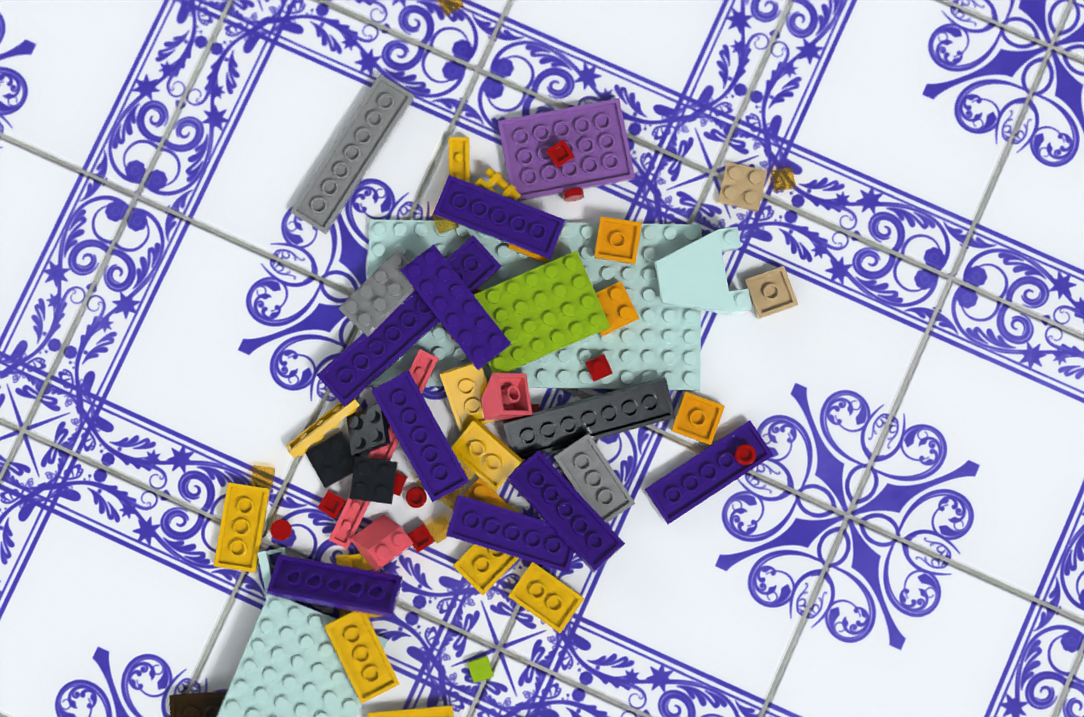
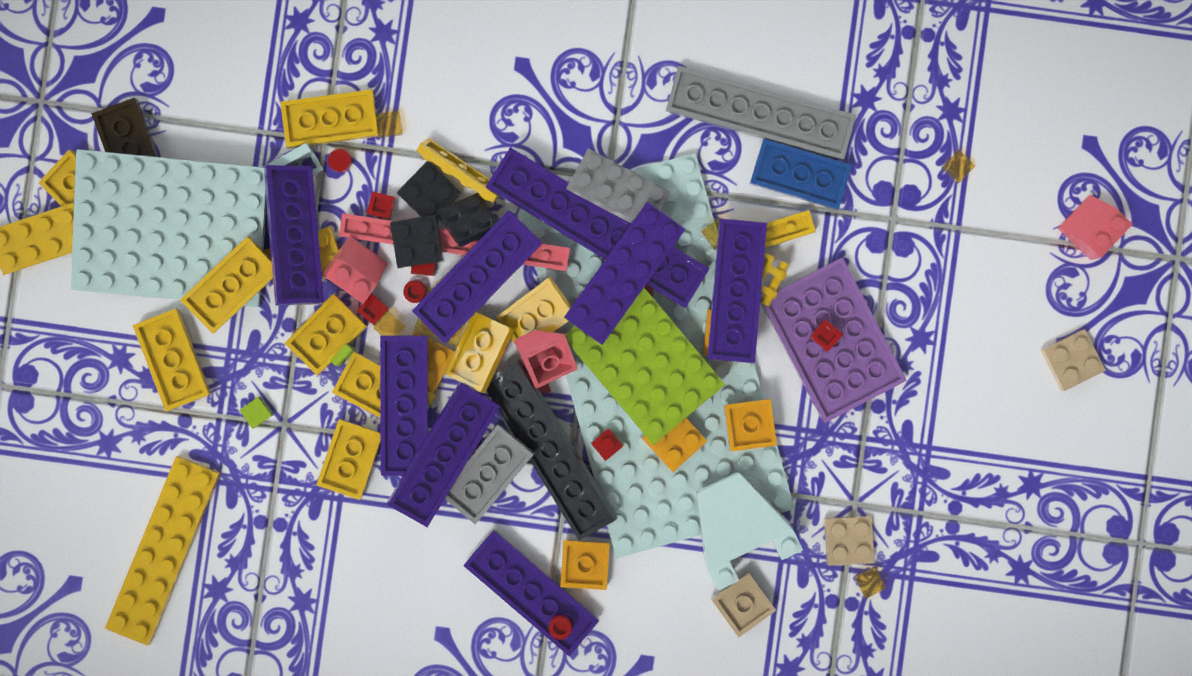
camera: 70 degrees right, 5 degrees up
(416, 135) = (800, 174): none -> blue plate
(430, 586) = (325, 334): none -> yellow plate
(453, 575) = (343, 355): none -> lime tile
(573, 194) = (786, 362): red tile -> none

